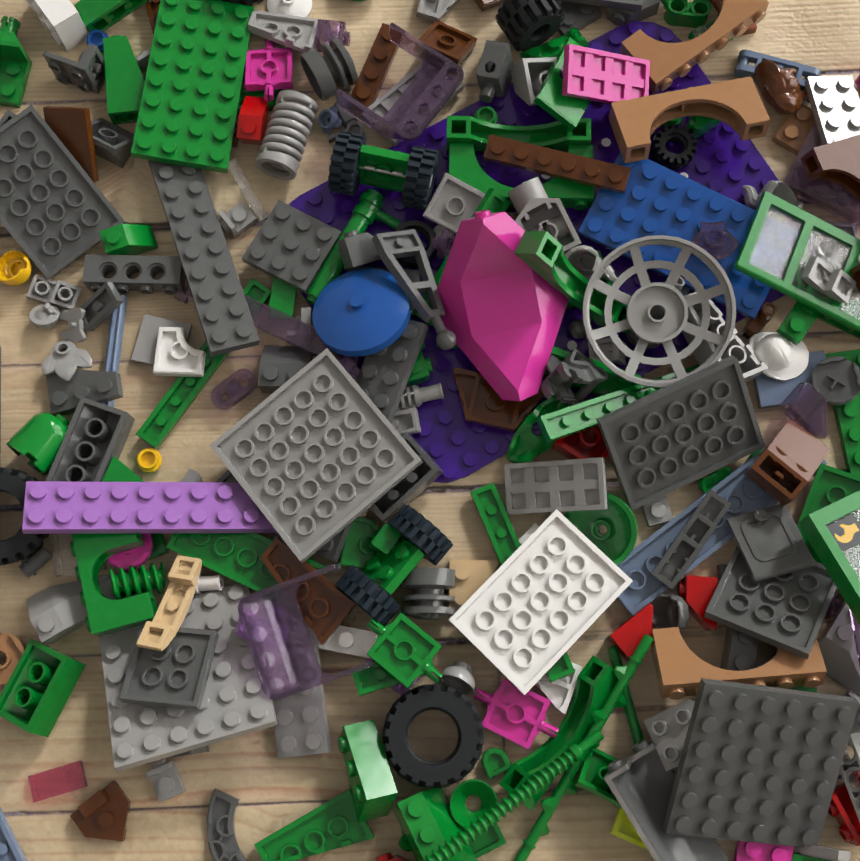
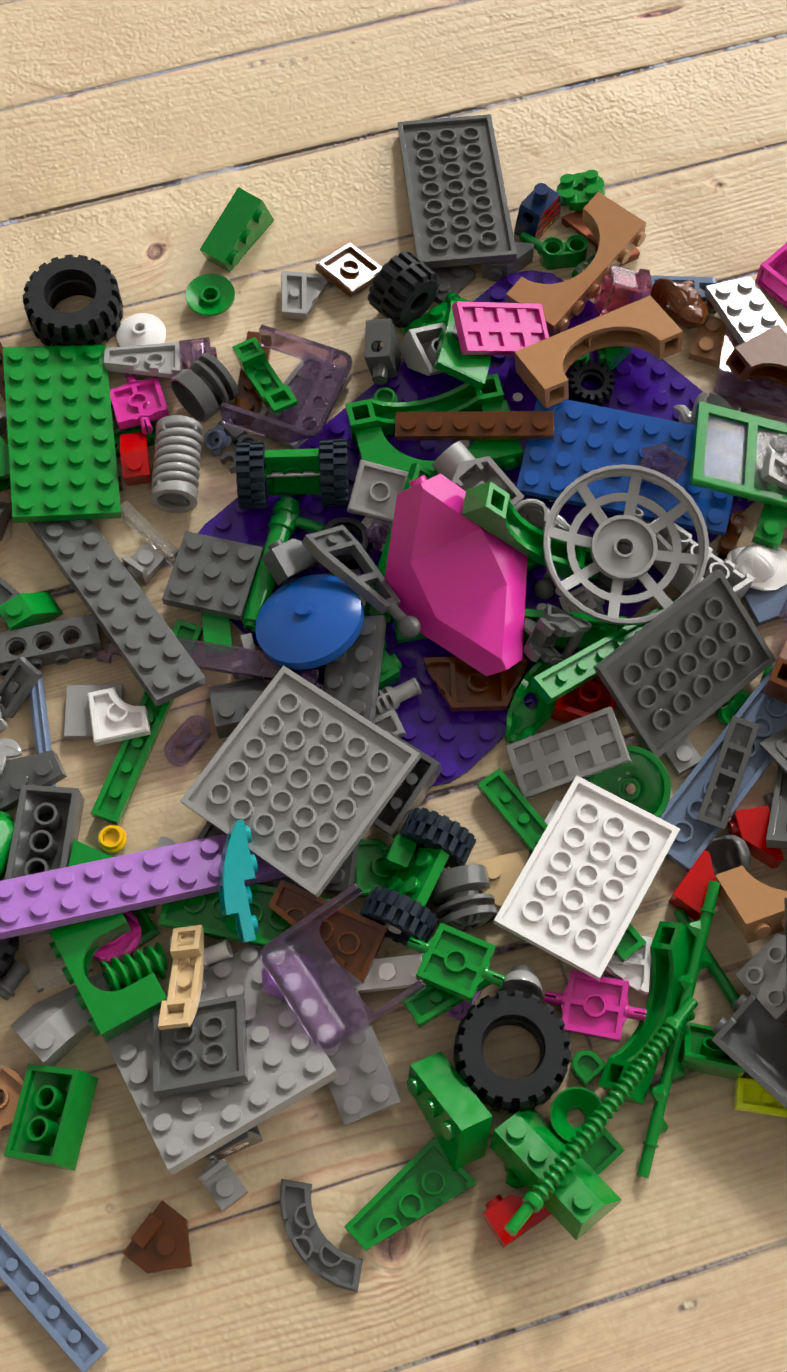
camera: 15 degrees left, 10 degrees down
(57, 781) = (97, 1219): clear pink tile -> none
(239, 521) = (235, 868): none -> teal slope
(383, 71) = (262, 377): none -> green slope
(449, 41) = (325, 332): reddish brown plate -> none
(728, 63) = (622, 288): none -> clear pink hips

